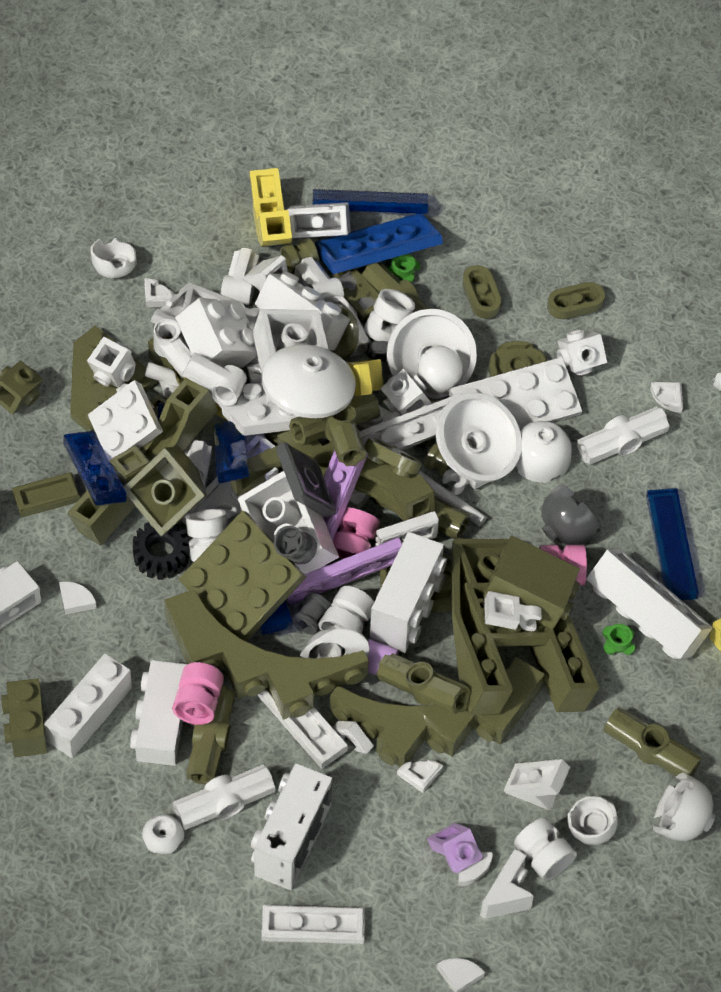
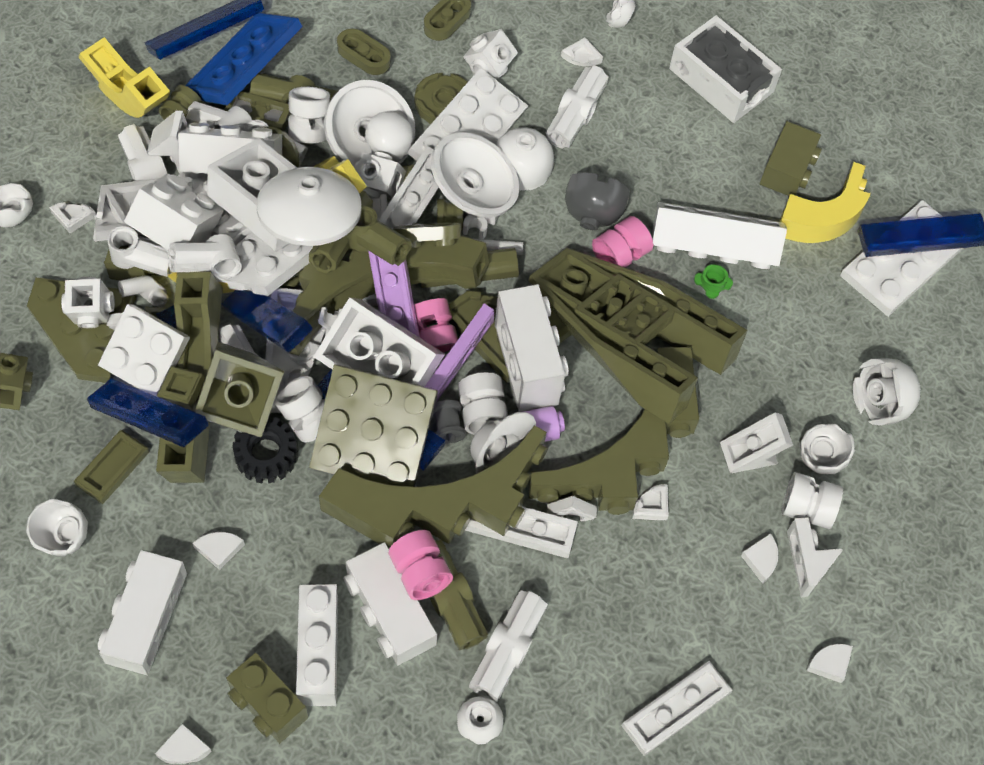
camera: 40 degrees left, 5 degrees up
(291, 826) = (598, 631): white piece -> none
(295, 544) = (405, 366): dark grey wheel -> none
(306, 480) = (370, 300): dark grey tile -> none
(319, 220) = (179, 62): white brick -> none
(377, 350) = (319, 151): dark grey tile -> none
(404, 261) = (282, 62): bright green plate -> none
(423, 525) = (480, 295): white tile -> none
(423, 683) = (630, 420): olive piece -> none
(457, 845) = (738, 547): lavender bracket -> none
(507, 612) = (634, 312): white plate -> none
(535, 579) = (626, 273): olive brick -> none
(635, 735) = (798, 353): olive piece -> none
(672, 543) = (685, 172): clear blue tile -> none

